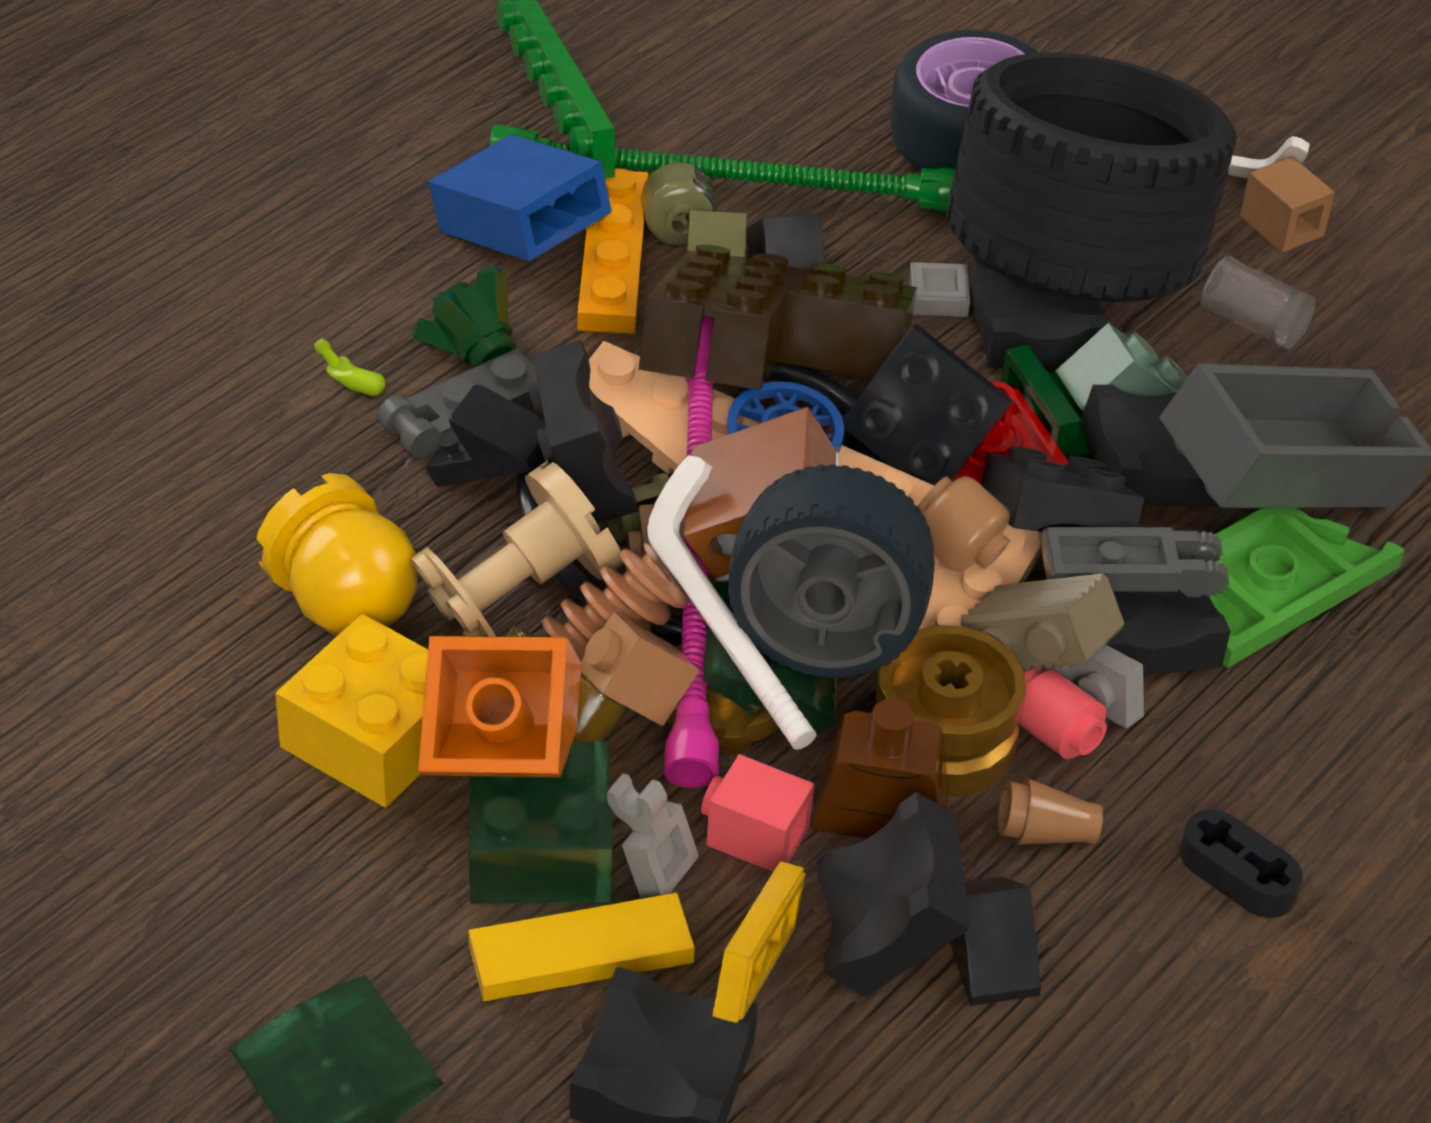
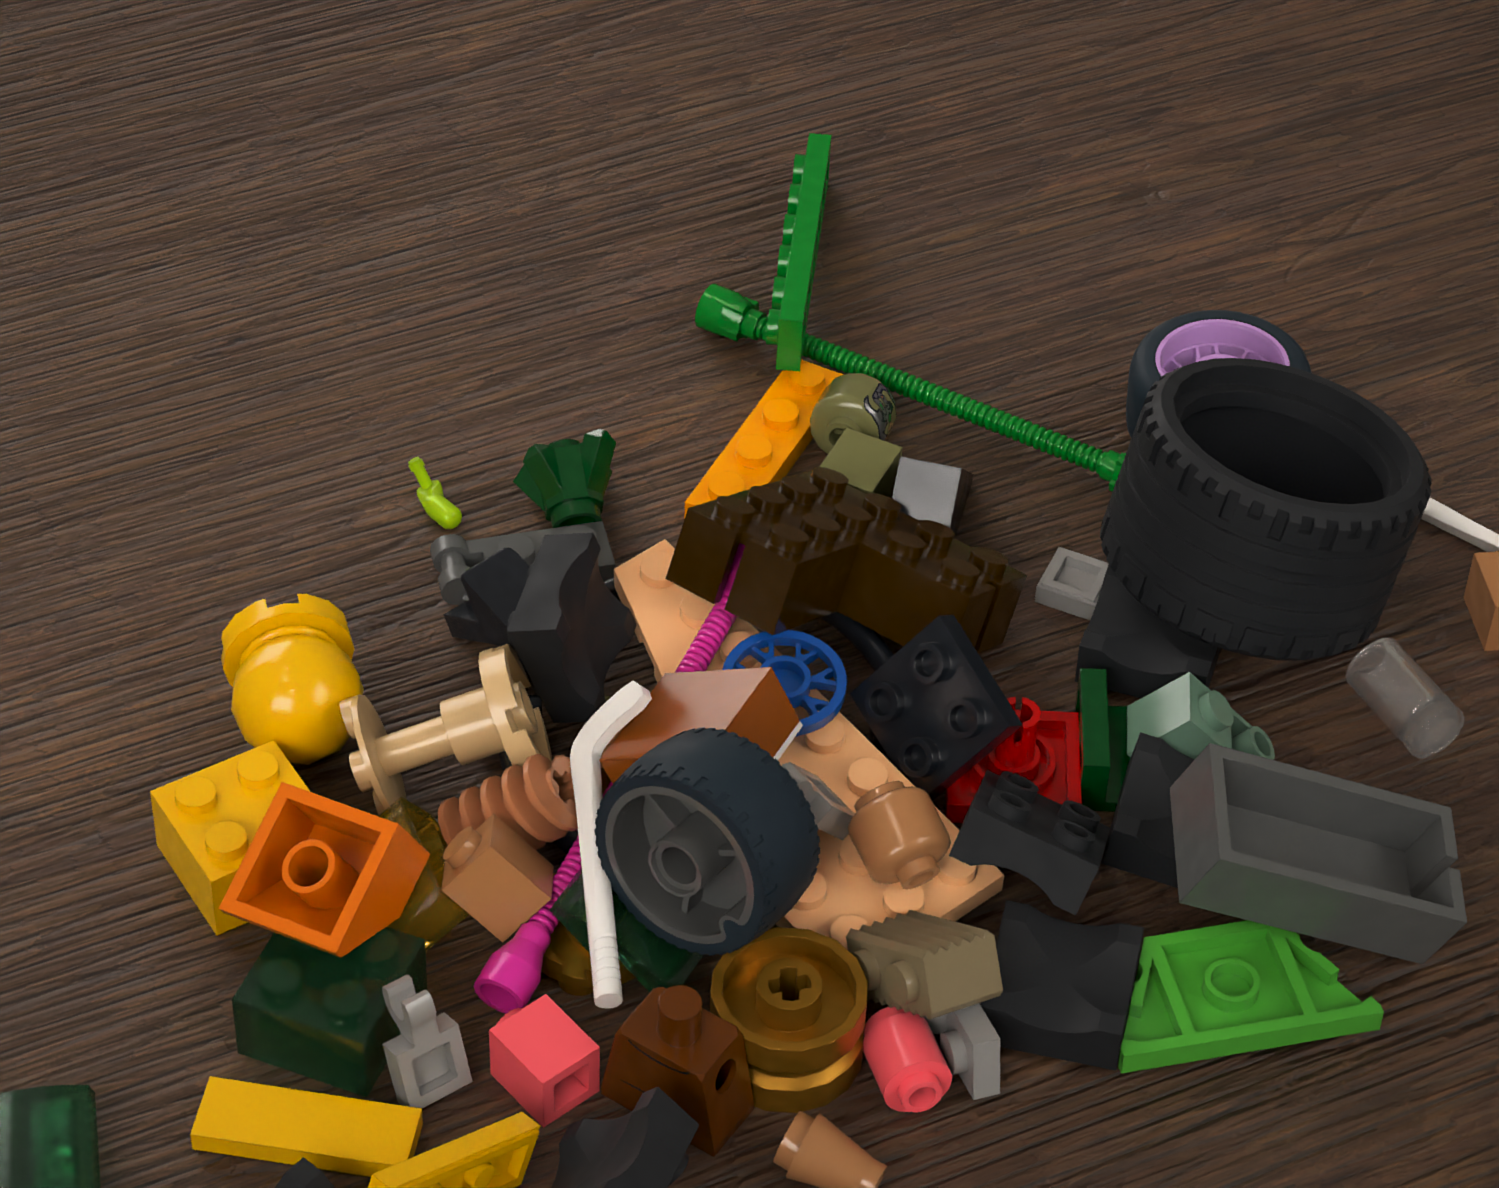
camera: 25 degrees right, 0 degrees up
(520, 197) = (690, 366): blue brick -> none
(1138, 558) = (1059, 928): dark grey hinge -> none

